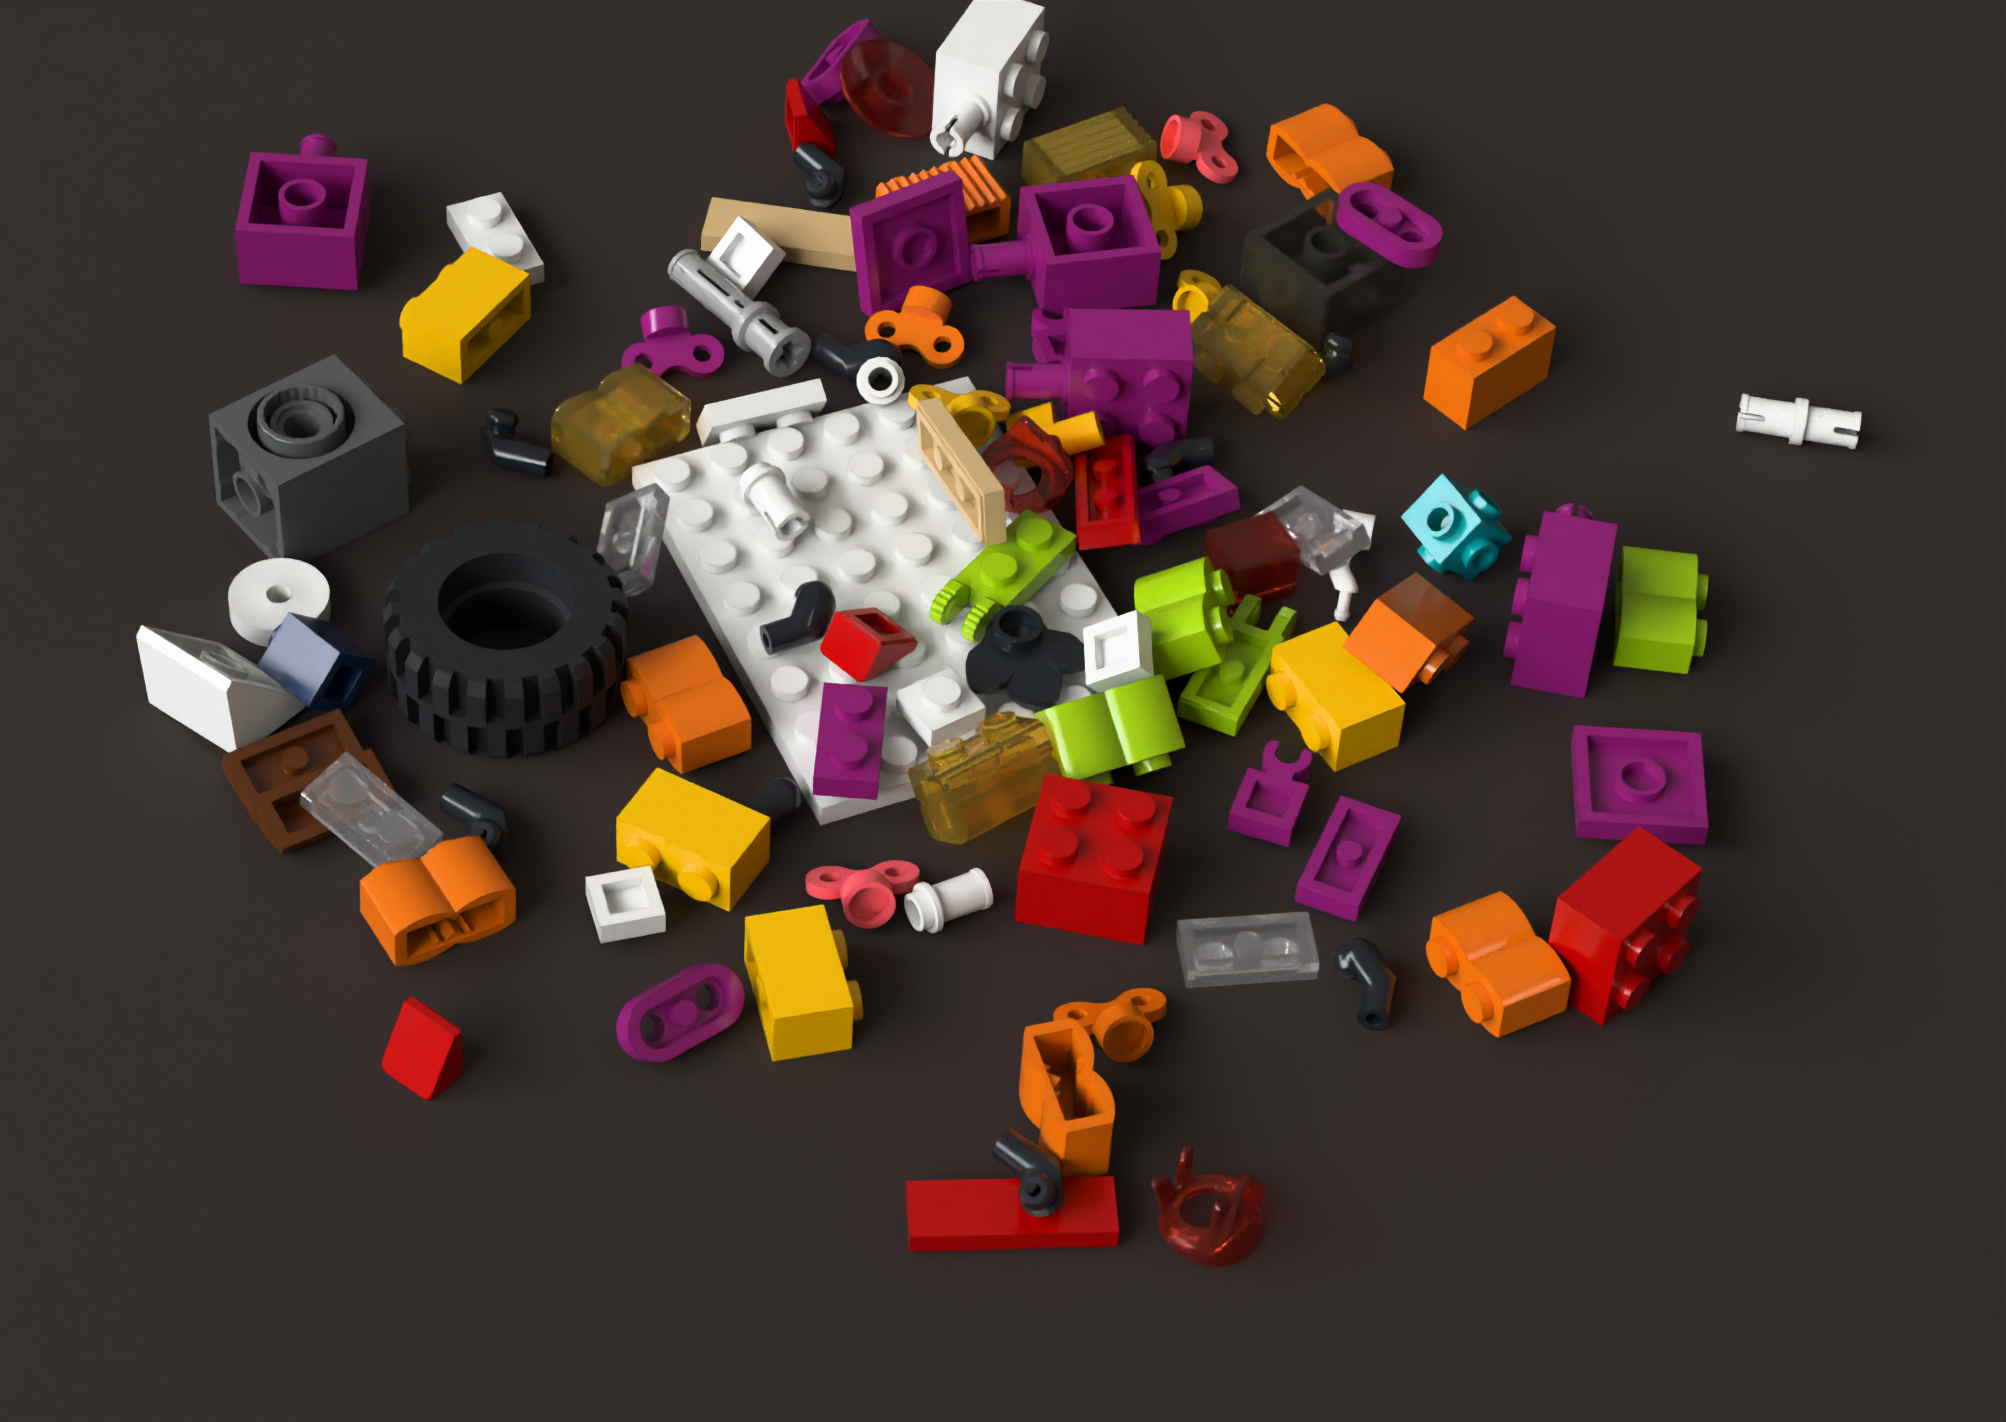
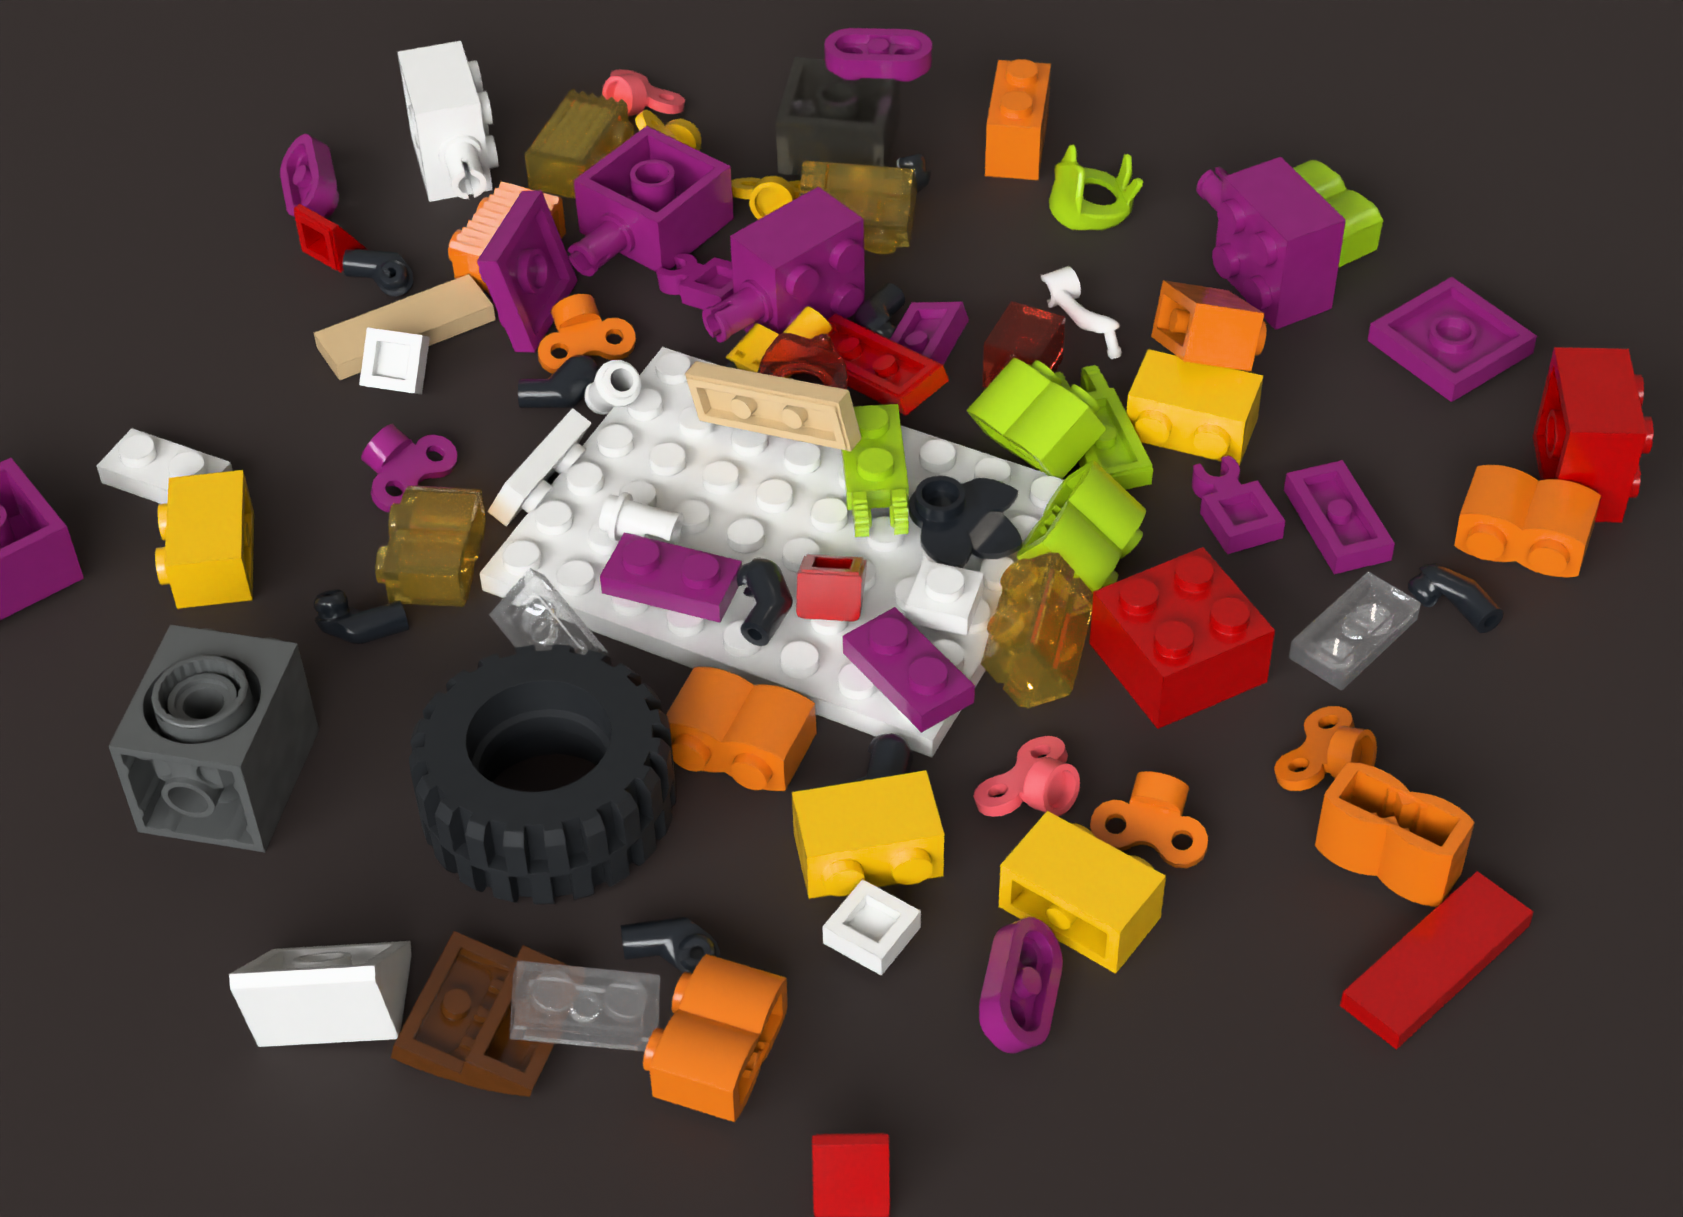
camera: 35 degrees left, 0 degrees up
(260, 587) = (298, 902): white piece -> none
(316, 663) = (395, 905): dark blue brick -> none
(753, 324) = (455, 406): light grey pin -> none
(753, 557) = (671, 577): none -> magenta plate
(889, 88) = (372, 176): clear red dish -> none
(917, 975) = (1153, 820): none -> orange piece
(934, 905) = (1101, 757): white pin -> none
(972, 411) = (717, 353): yellow piece -> none
(1039, 1171) = (1439, 908): black arm -> none
(1118, 651) = (1038, 466): white plate -> none
(1234, 1219) = (1583, 881): clear red piece -> none
(1319, 530) = (1061, 292): clear plate -> none
(1325, 151) = (746, 52): orange brick -> none
(1457, 528) = (1121, 230): teal brick -> none
(1477, 440) = (1079, 214): none -> lime piece
(1798, 421) = (1245, 45): white pin -> none

